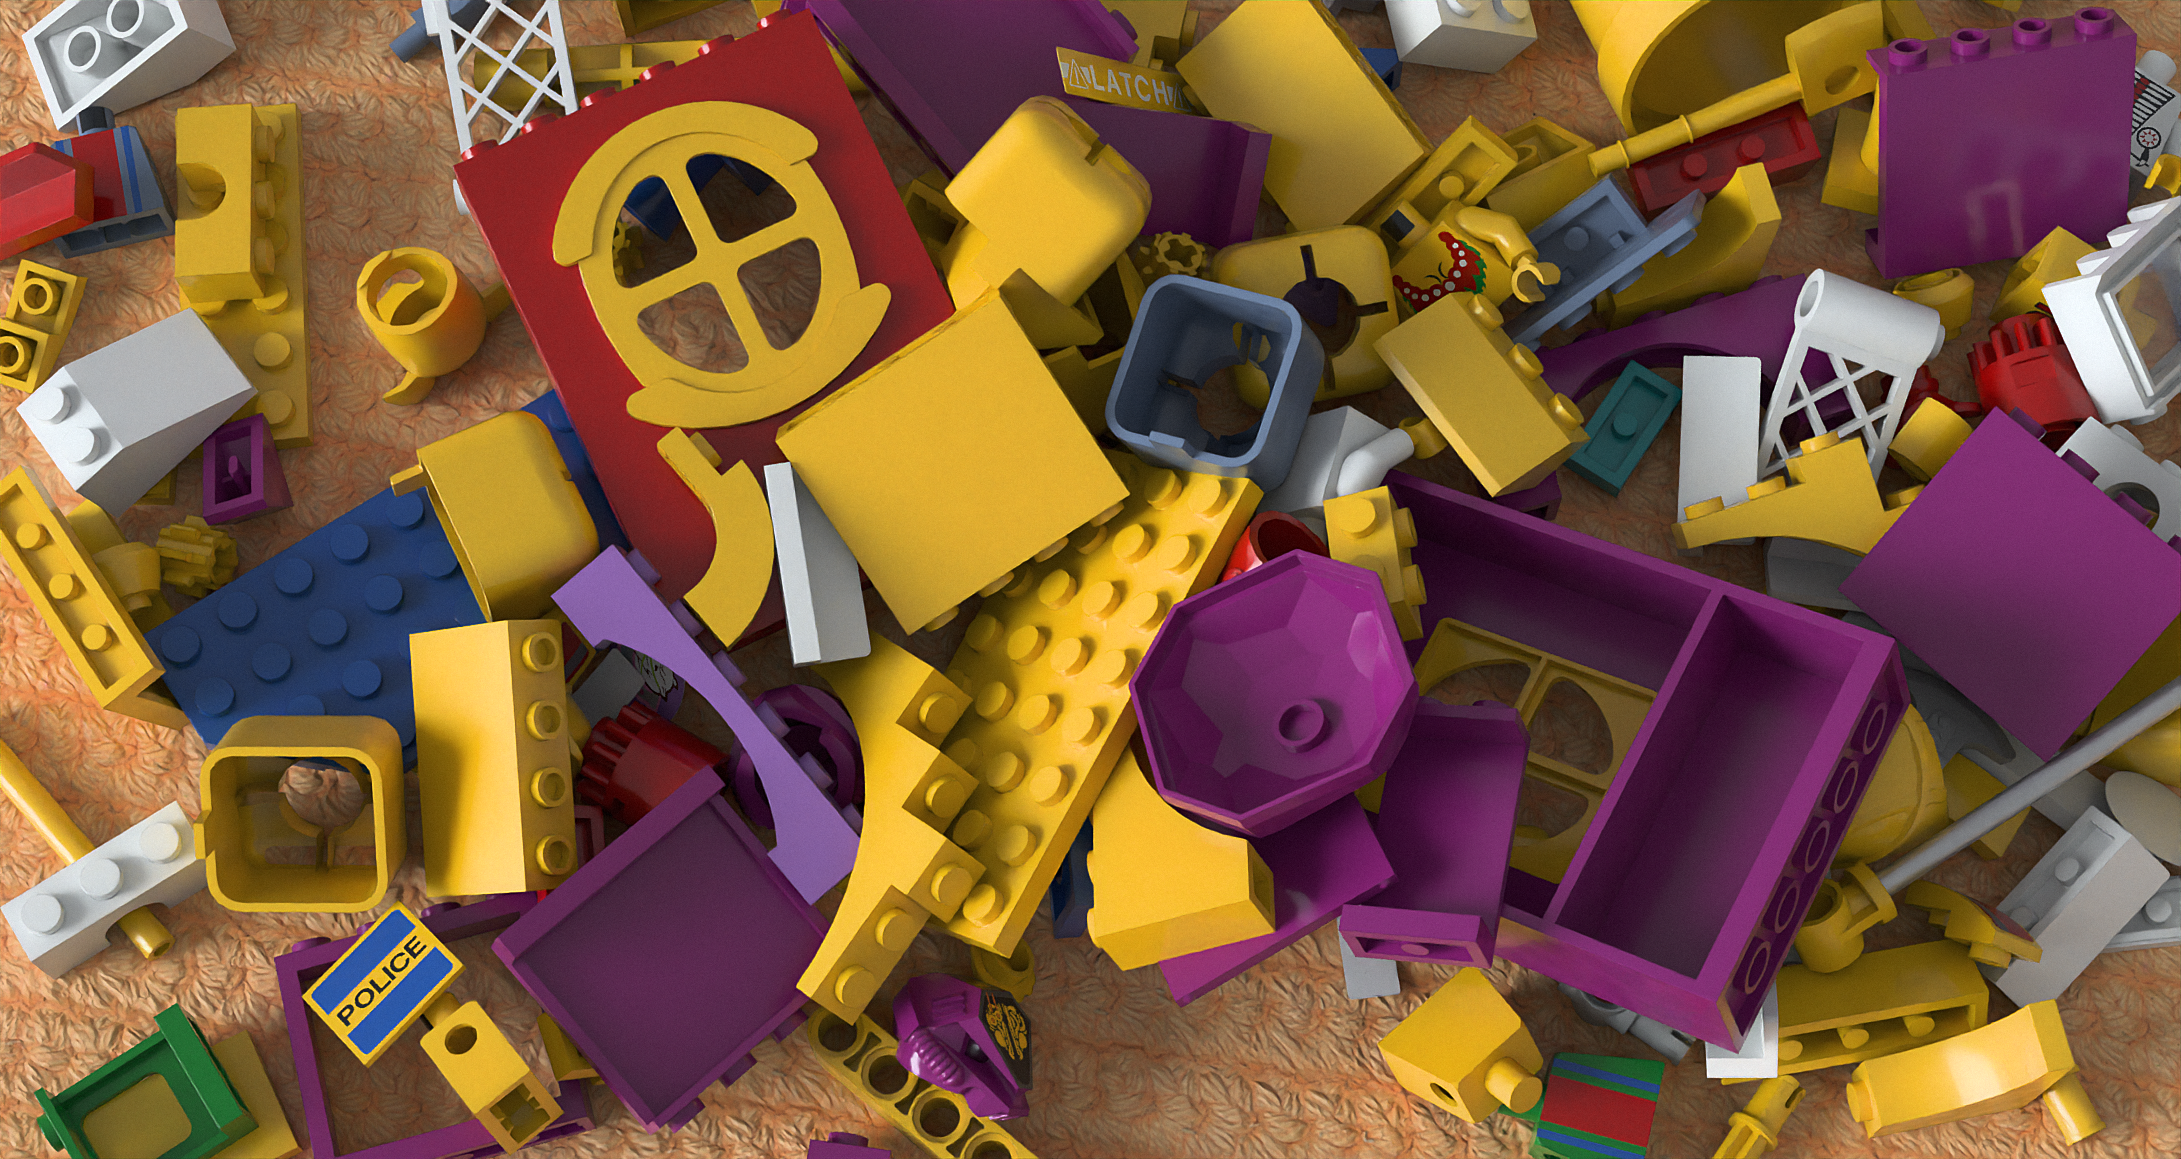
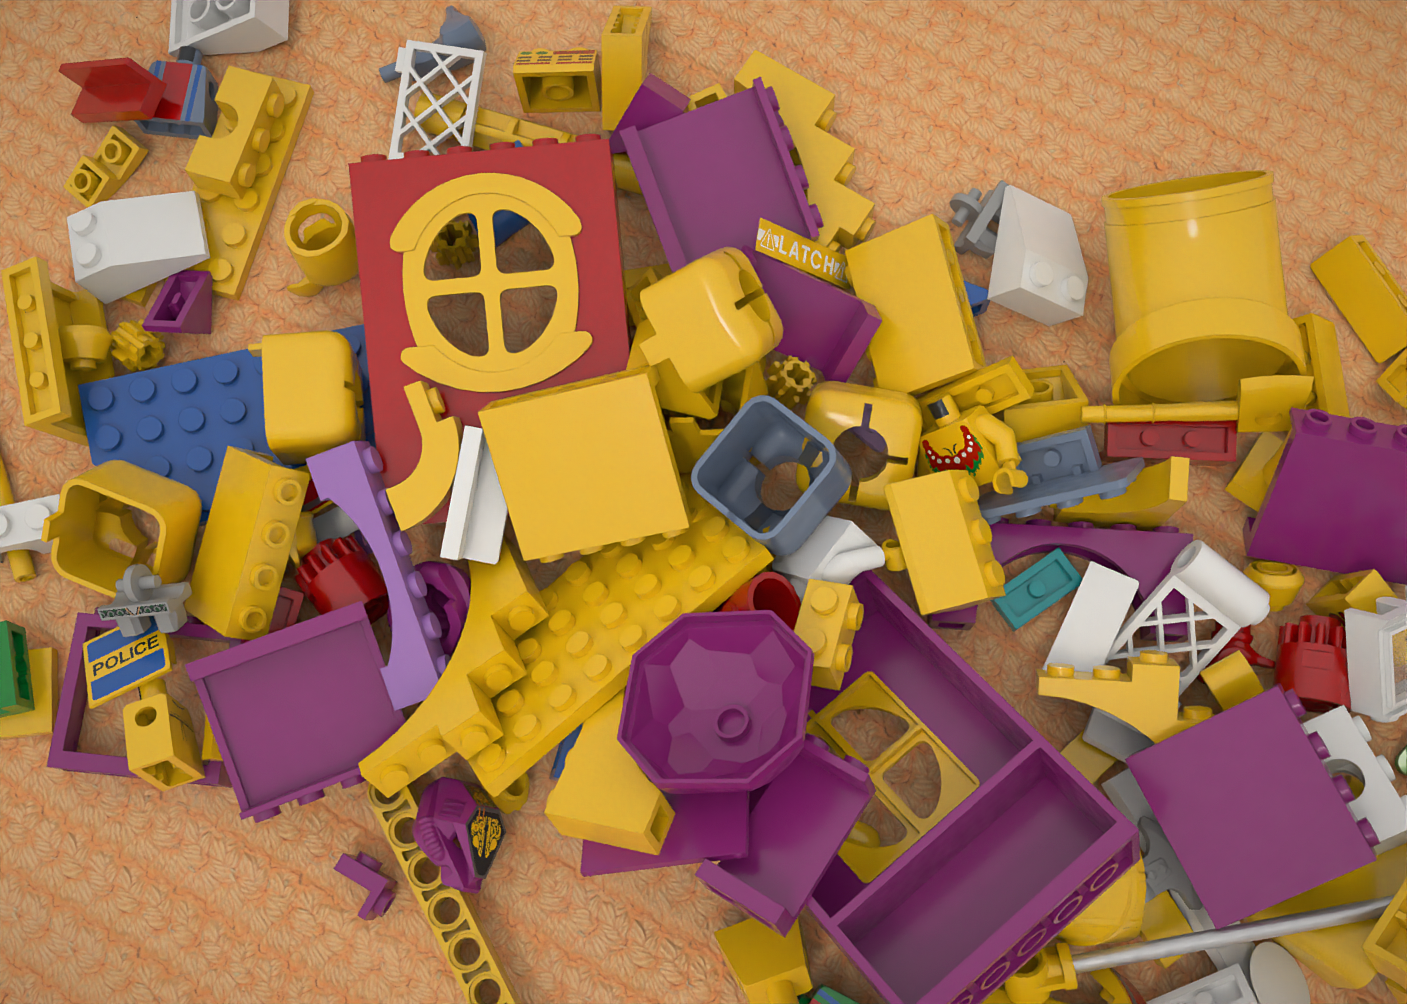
camera: 25 degrees right, 5 degrees up
(381, 880) = (144, 596): none -> light grey hips

